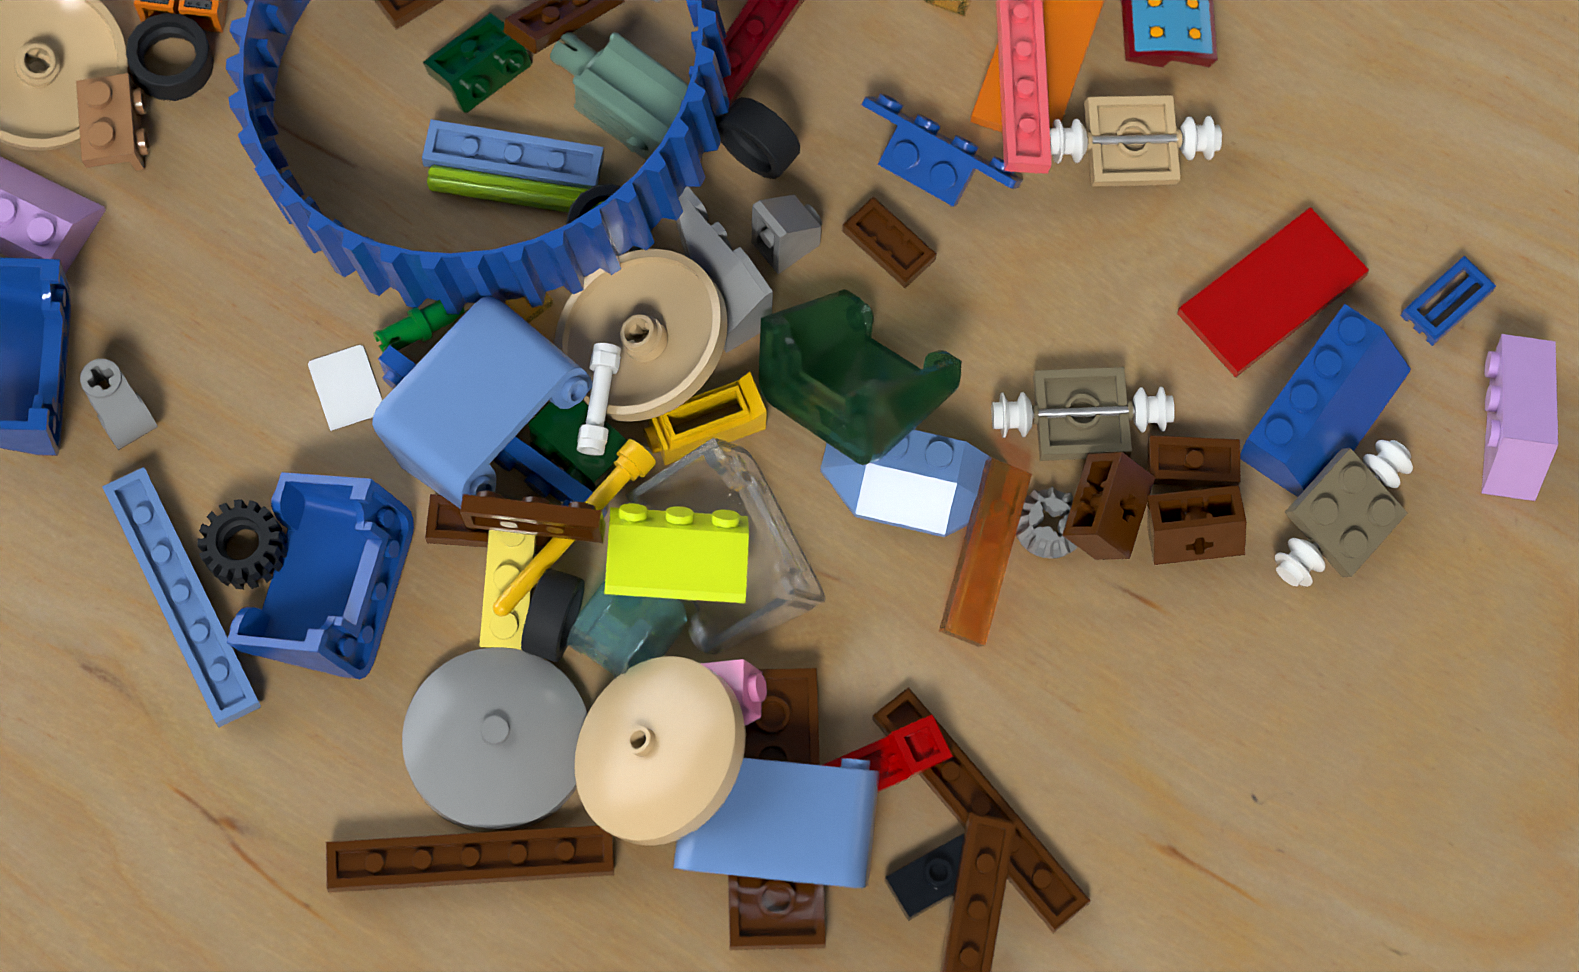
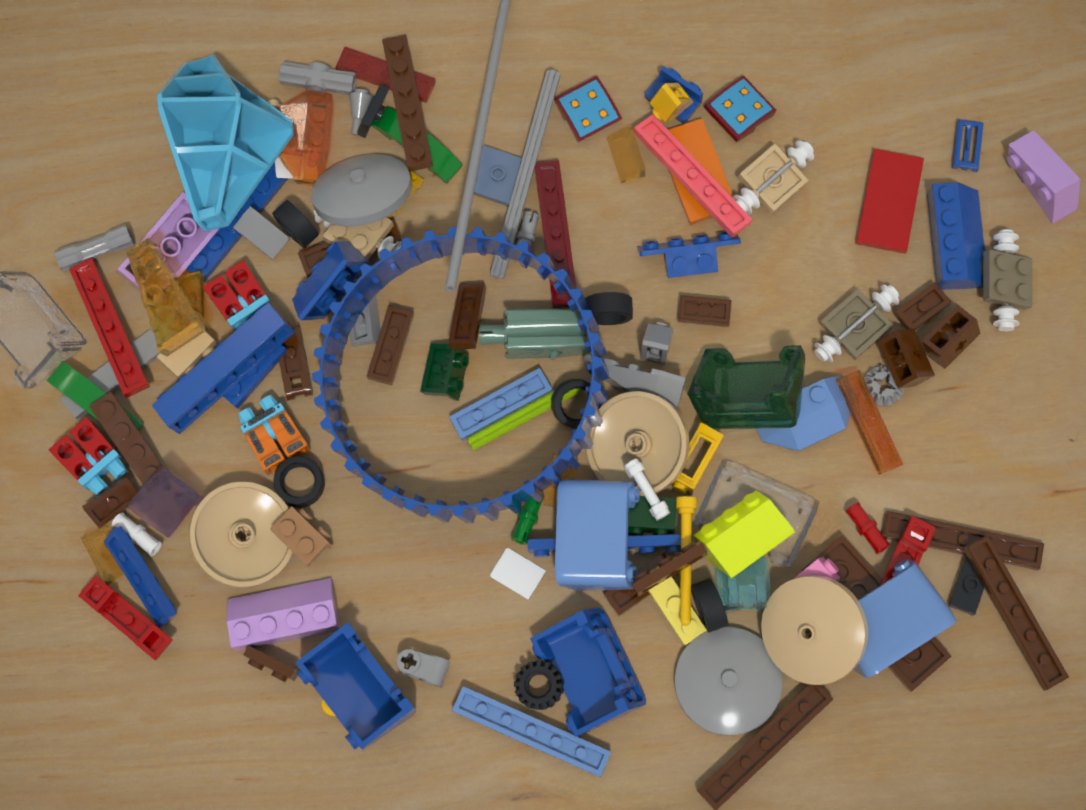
camera: 30 degrees left, 5 degrees up
(861, 689) = (867, 528): none -> red pin

